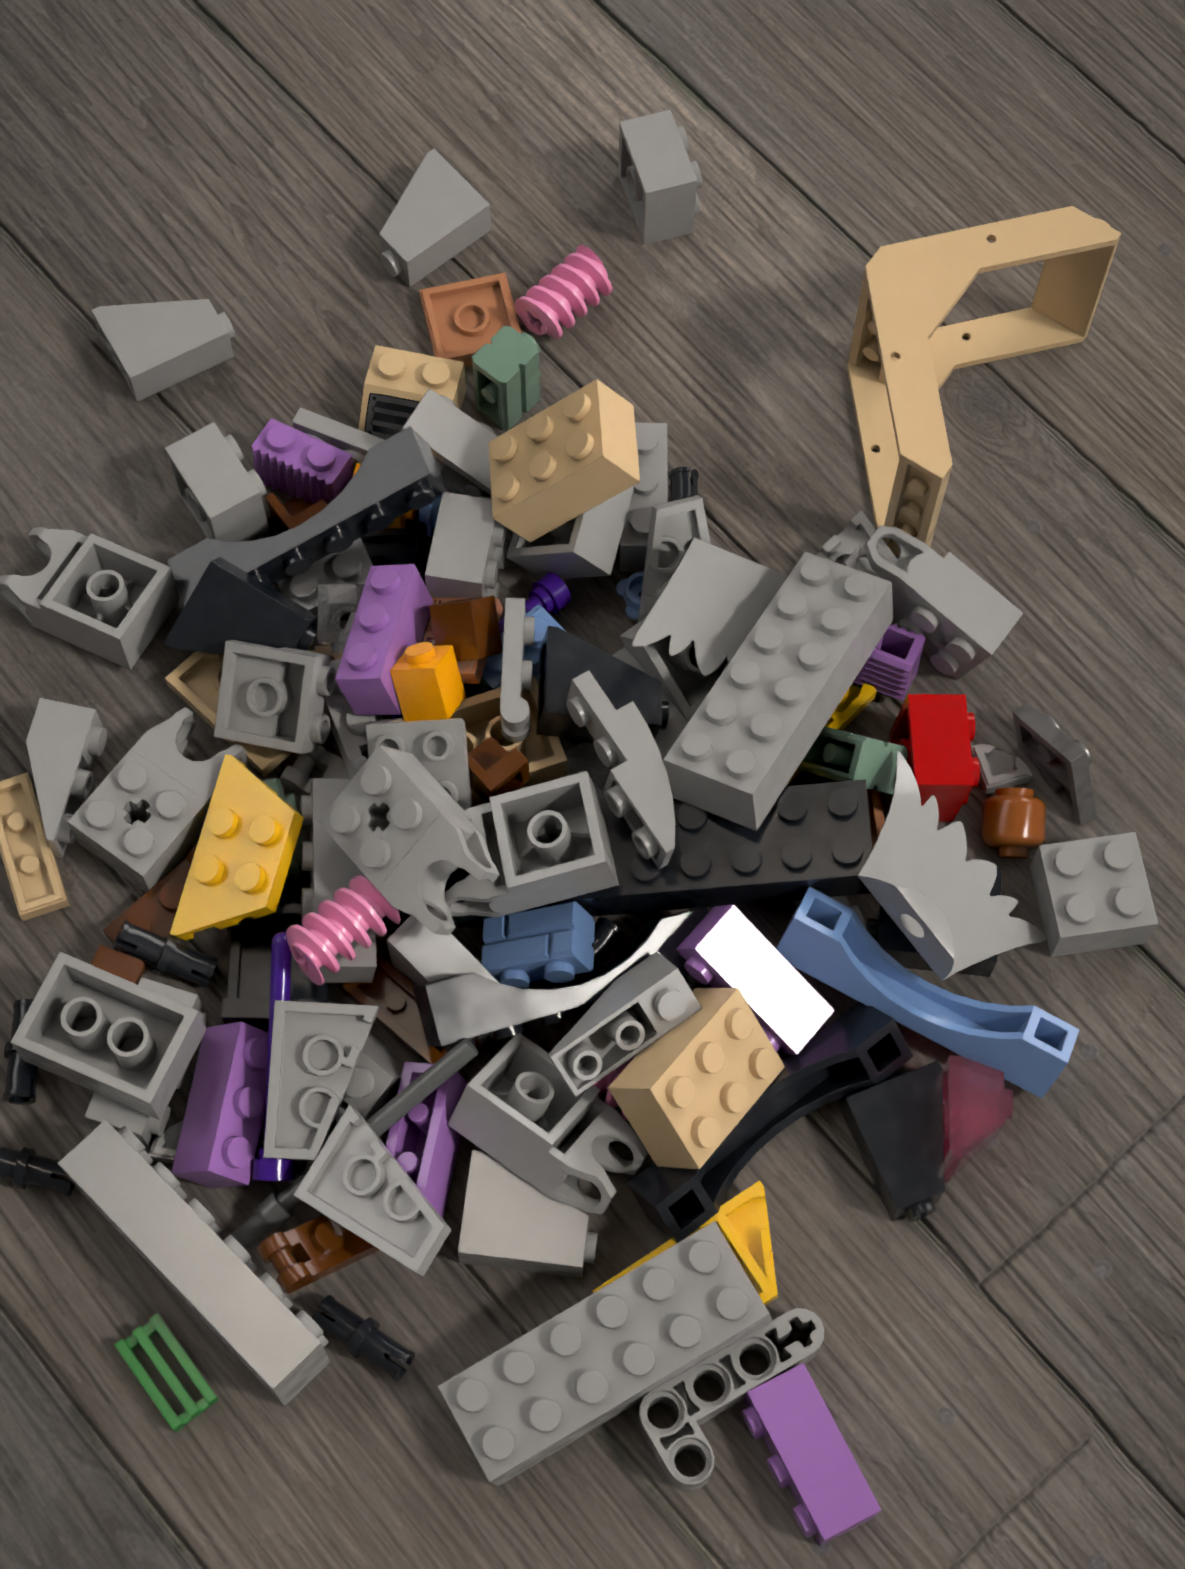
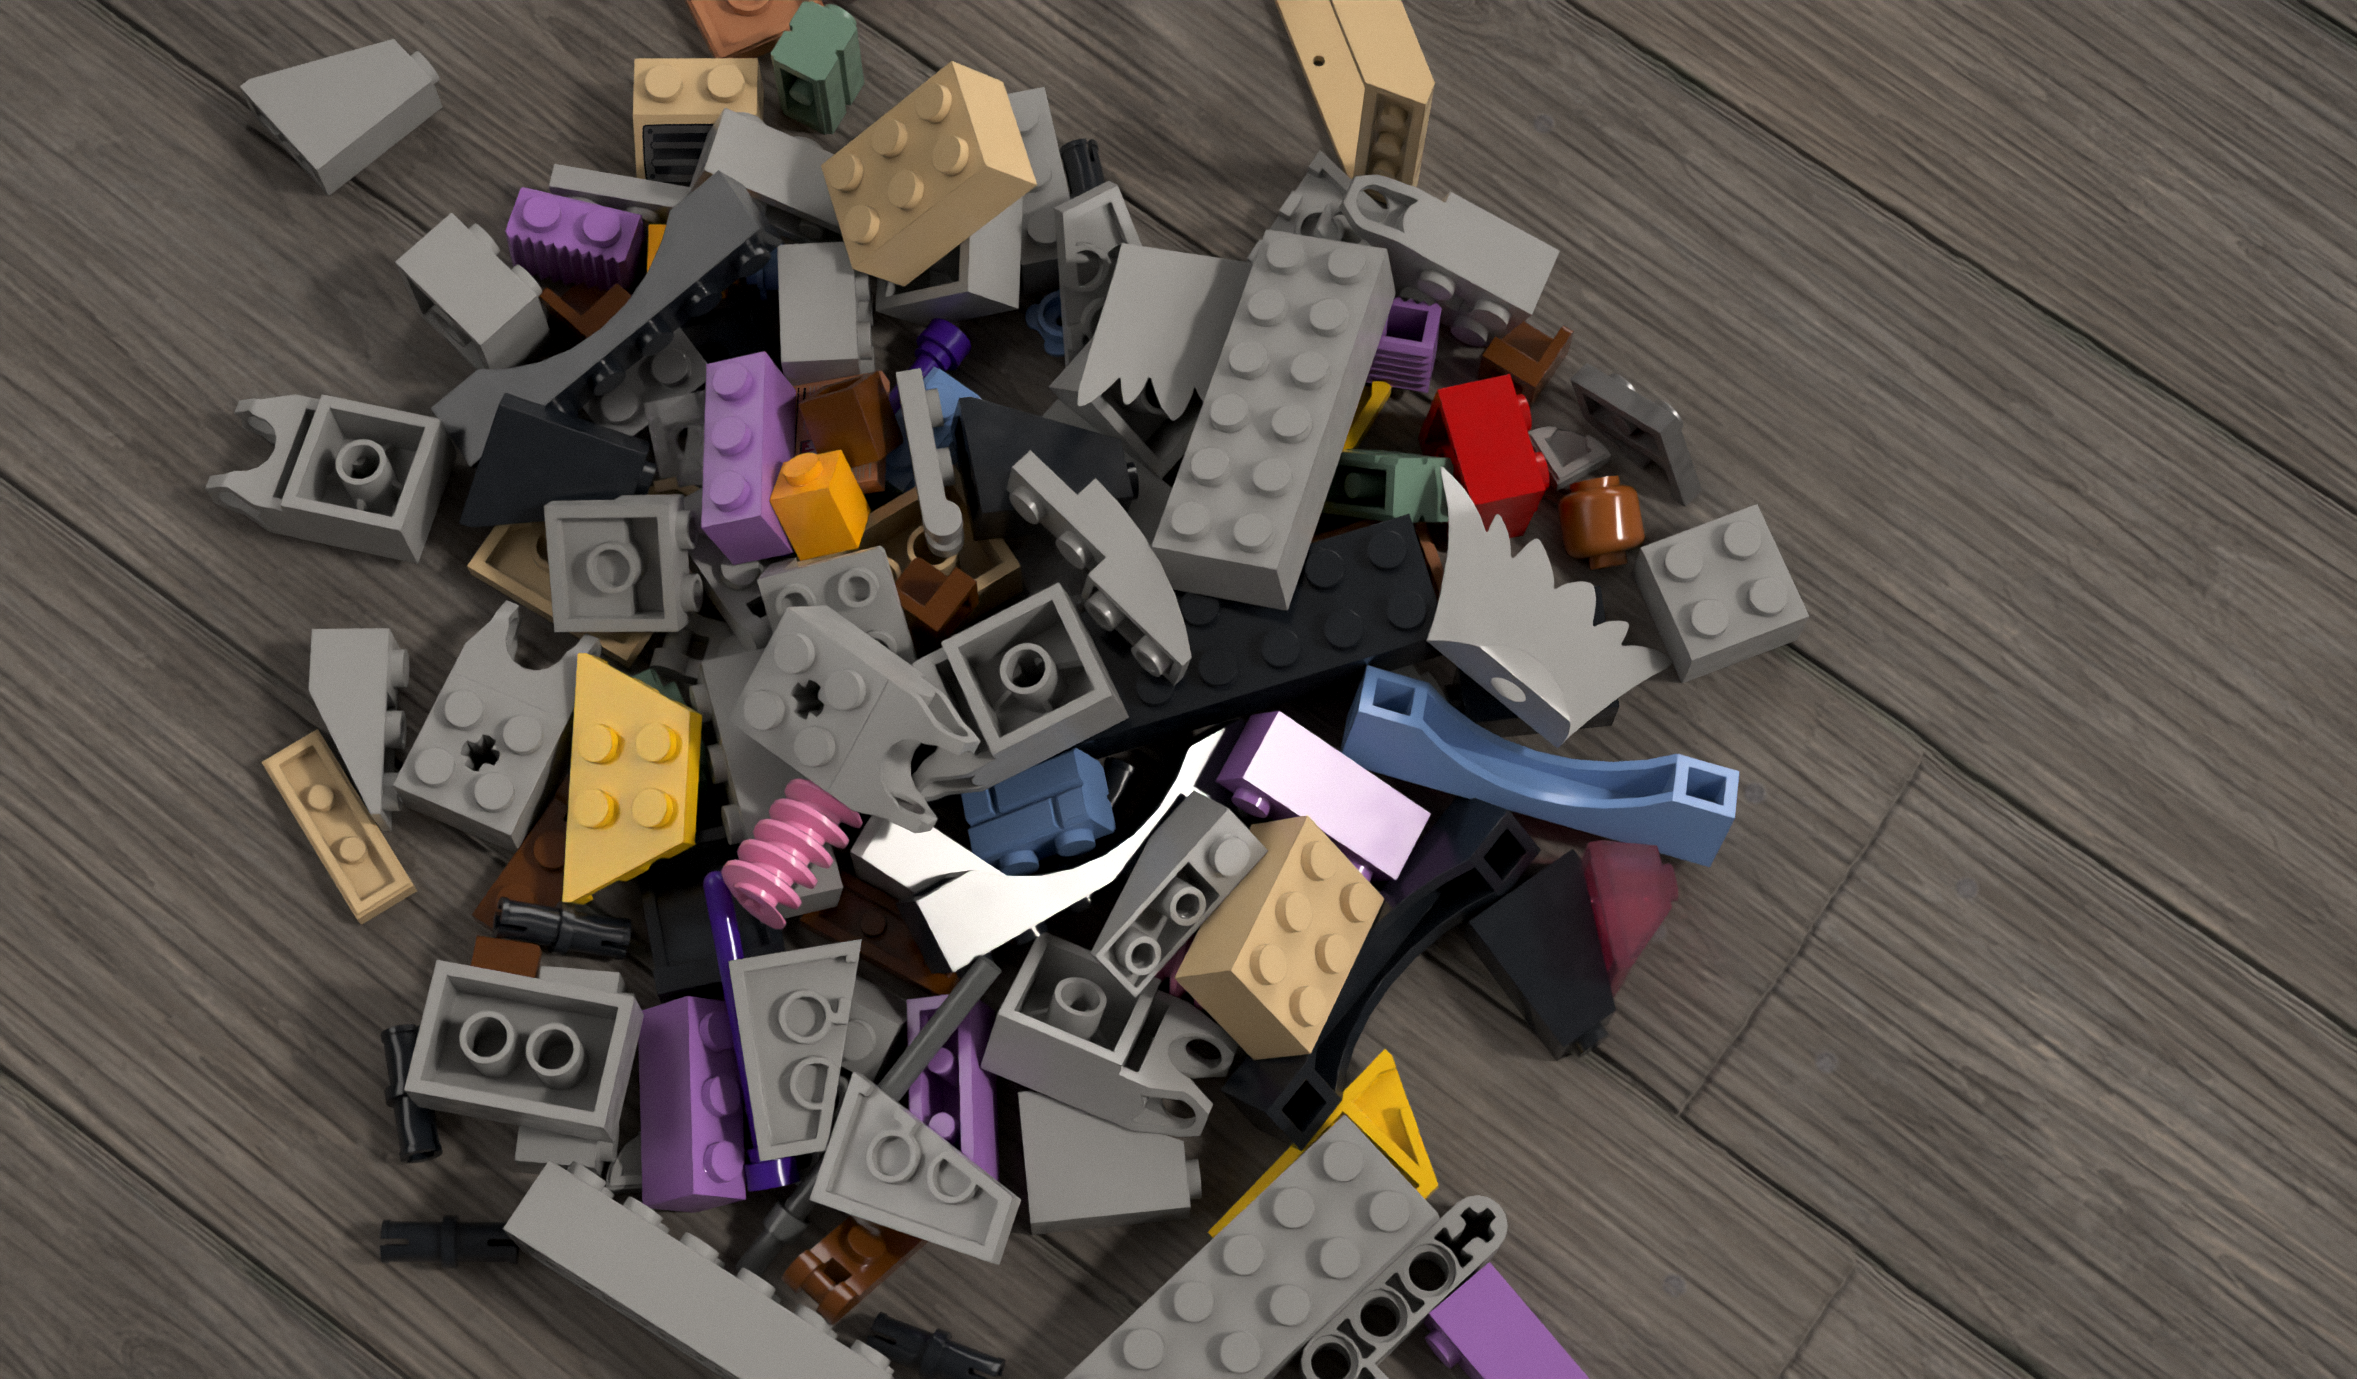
camera: 15 degrees left, 5 degrees up
(984, 691) = (1527, 357): none -> reddish brown panel

